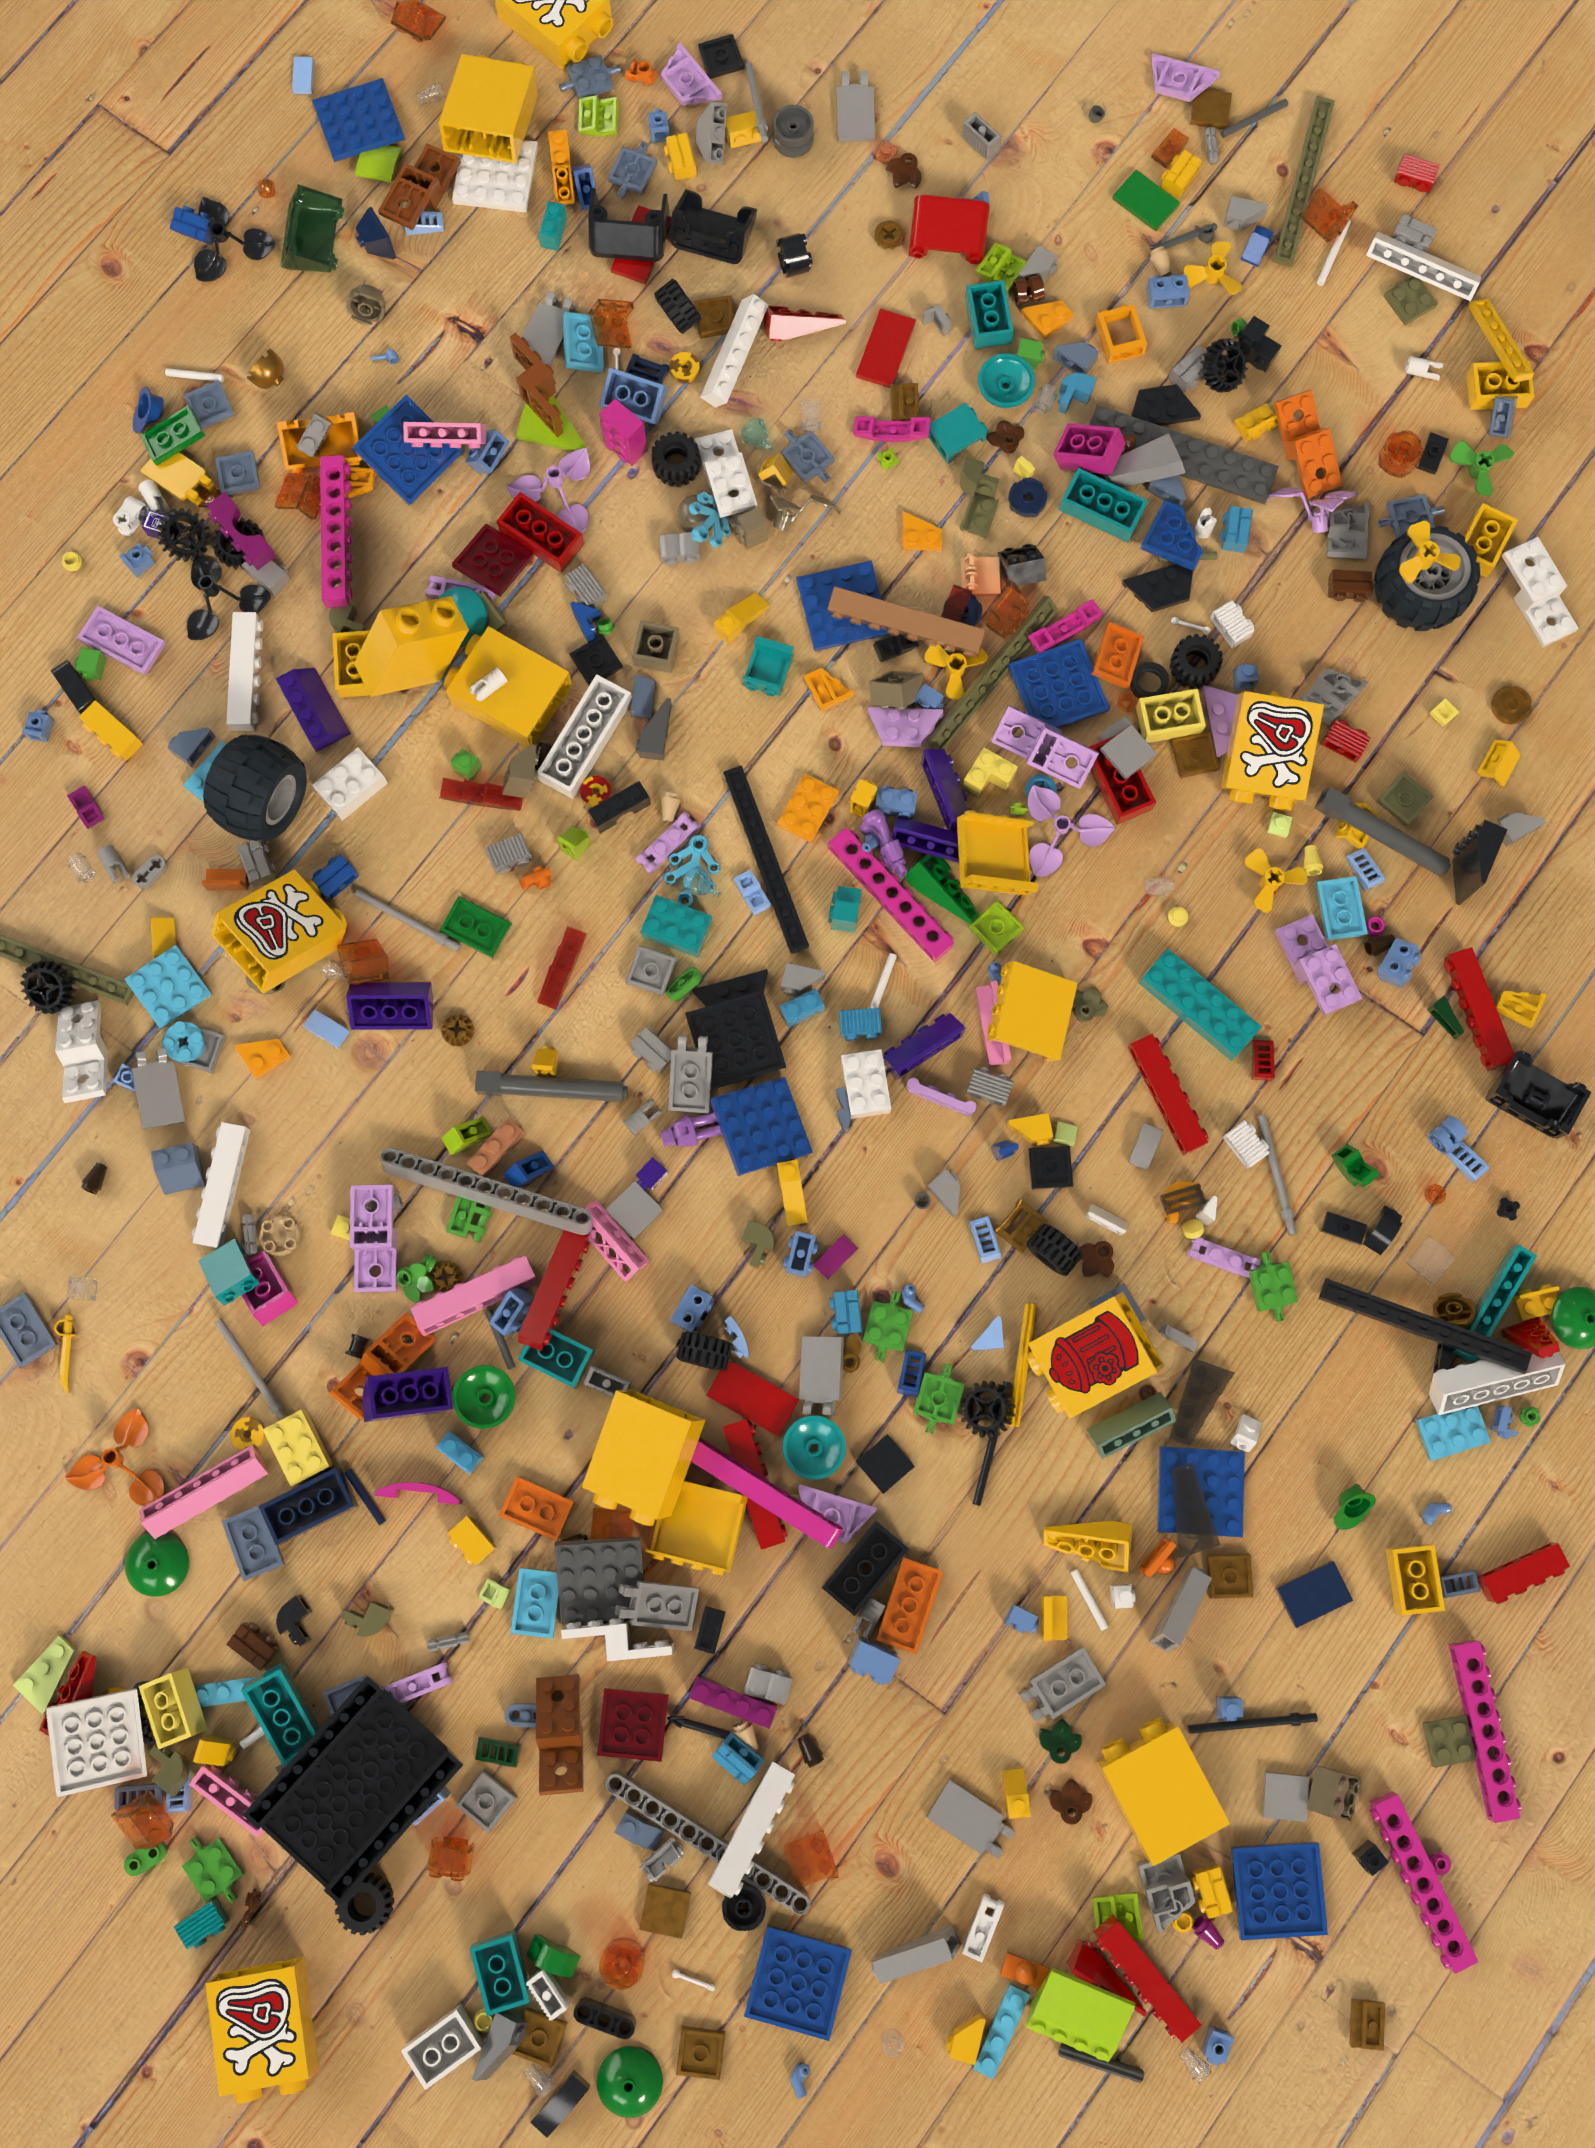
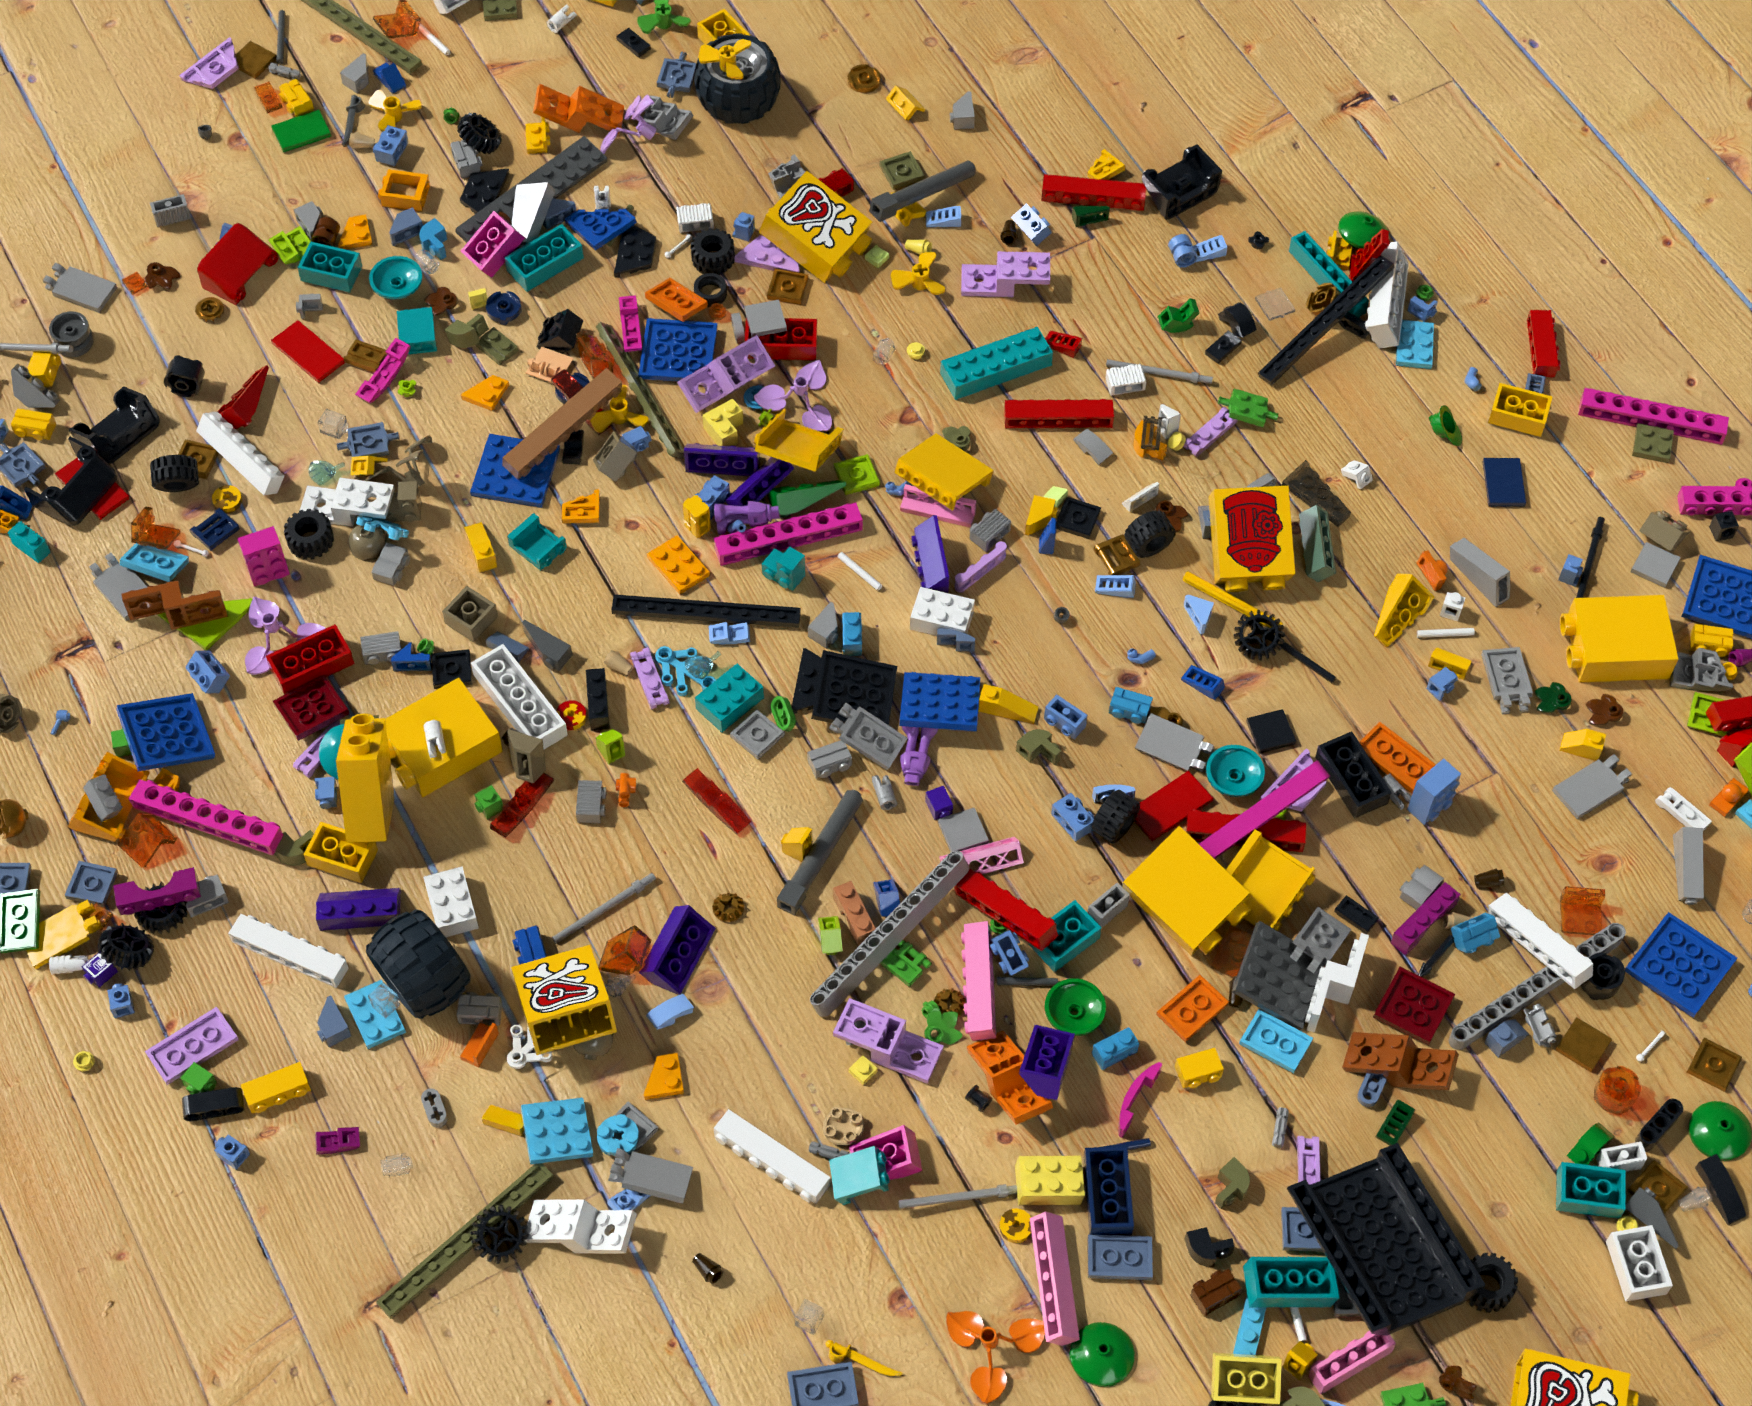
camera: 65 degrees left, 20 degrees down
(112, 862) = (409, 1135): light grey hinge -> none
(130, 514) = (73, 991): white piece -> none
(178, 1168) = (735, 1187): sand blue slope -> none
(204, 577) = (171, 948): black plant -> none
(444, 433) = (176, 686): bright pink brick -> none
(450, 1858) = (1475, 1192): clear orange brick -> none
(475, 927) = (641, 856): green tile -> none
(486, 1801) = (1434, 1151): light grey tile -> none
(494, 1593) = (1252, 1074): yellowish green slope -> none
(637, 394) = (222, 542): medium blue brick -> none
(835, 1256) = (1078, 694): magenta slope -> none
(860, 1024) = (887, 599): dark azure brick -> none
(888, 1326) = (1156, 681): bright green plate -> none
(905, 726) = (648, 467): lavender wing -> none
(938, 1398) = (1234, 668): bright green plate -> none
(946, 1191) = (1064, 594): light grey slope -> none
(1031, 352) = (378, 252): bright green brick -> none
(1170, 716) = (748, 283): light yellow brick -> none
(1192, 1515) = (1410, 530): clear smoke wing -> none
(1220, 1480) = (1390, 523): blue plate -> none
(1230, 1576) = (1467, 527): pearl gold tile -> none
(1236, 530) = (620, 184): dark azure brick -> none
(1259, 348) = (468, 102): black brick -> none
(1341, 908) = (967, 244): medium azure plate -> none
(1350, 585) = (709, 133): reddish brown brick -> none
(1380, 926) = (992, 229): dark pink plate -> none
(1400, 453) = (623, 58): clear orange brick -> none
(1439, 1190) = (1225, 279): clear orange plate -> none
(1444, 712) = (846, 119): light yellow plate -> none
(1475, 858) = (980, 138): black slope -> none
(1540, 592) = (791, 27): white bracket -> none

